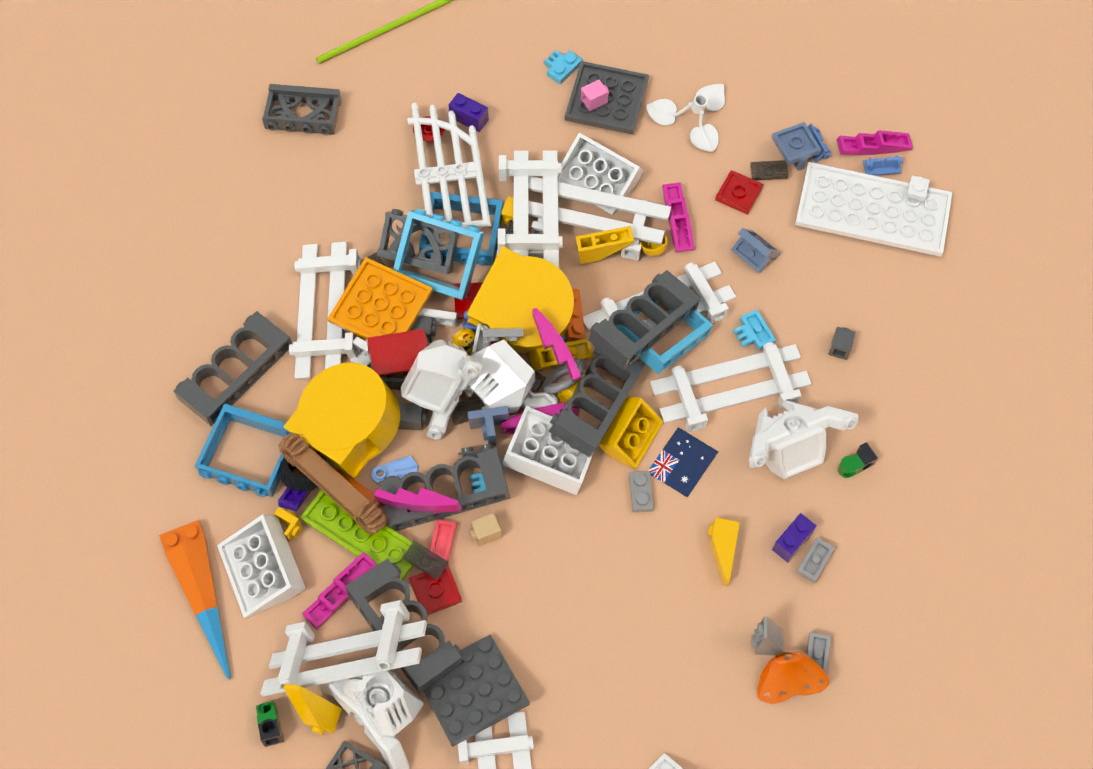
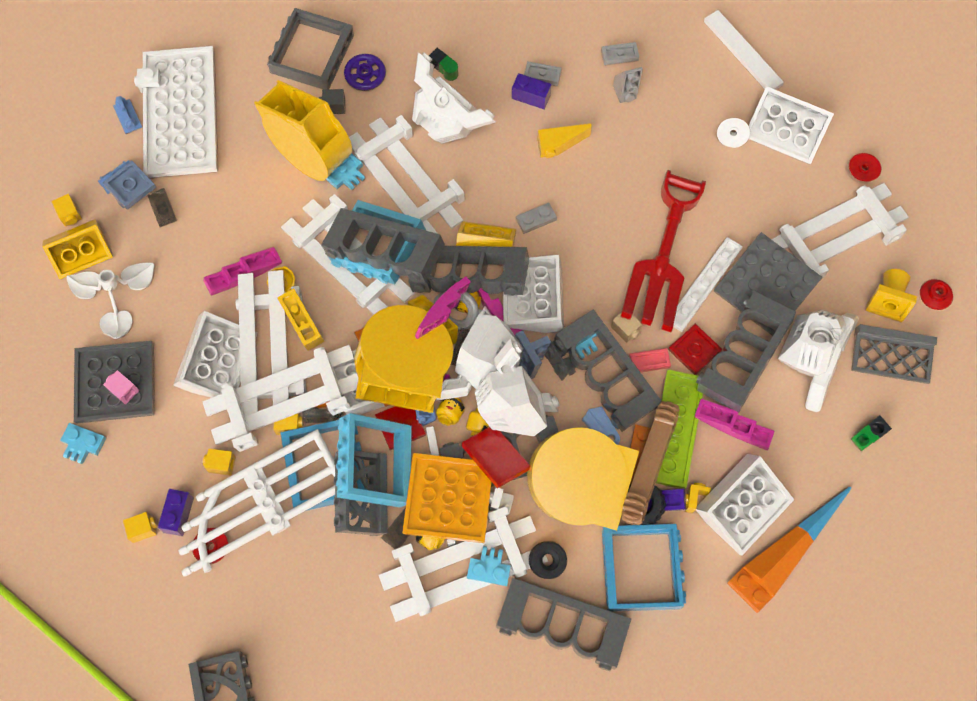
camera: 110 degrees left, 5 degrees up
(282, 371) = (559, 560): none -> black tyre
(309, 325) = (489, 568): none -> medium azure hinge
(313, 709) = (846, 393): yellow slope -> none
(385, 659) = (769, 344): white fence -> none
(422, 502) = (633, 373): dark pink slope -> none
(425, 560) = (678, 361): clear smoke plate -> none
(468, 84) = (140, 527): none -> yellow brick
(498, 147) = (219, 462): none -> yellow brick
(503, 631) = (705, 283): none -> white tile
(511, 334) = (450, 354): light grey plate -> none
(535, 588) = (659, 268): none -> red piece
(670, 737) = (733, 139): none -> white piece
(682, 462) = (493, 196): dark blue sticker -> none
(739, 192) = (194, 228): red tile -> none
(748, 96) = (77, 249): none -> yellow slope
(754, 249) = (259, 193): sand blue bracket -> none
(790, 97) = (66, 210): none -> yellow brick
(790, 676) = (641, 57): orange piece -> none
(797, 286) = (304, 130): none -> yellow brick
(865, 398) = (364, 67): none -> dark purple plate
(873, 144) = (102, 127): dark pink slope -> none
(900, 363) = (319, 22): none -> dark grey window

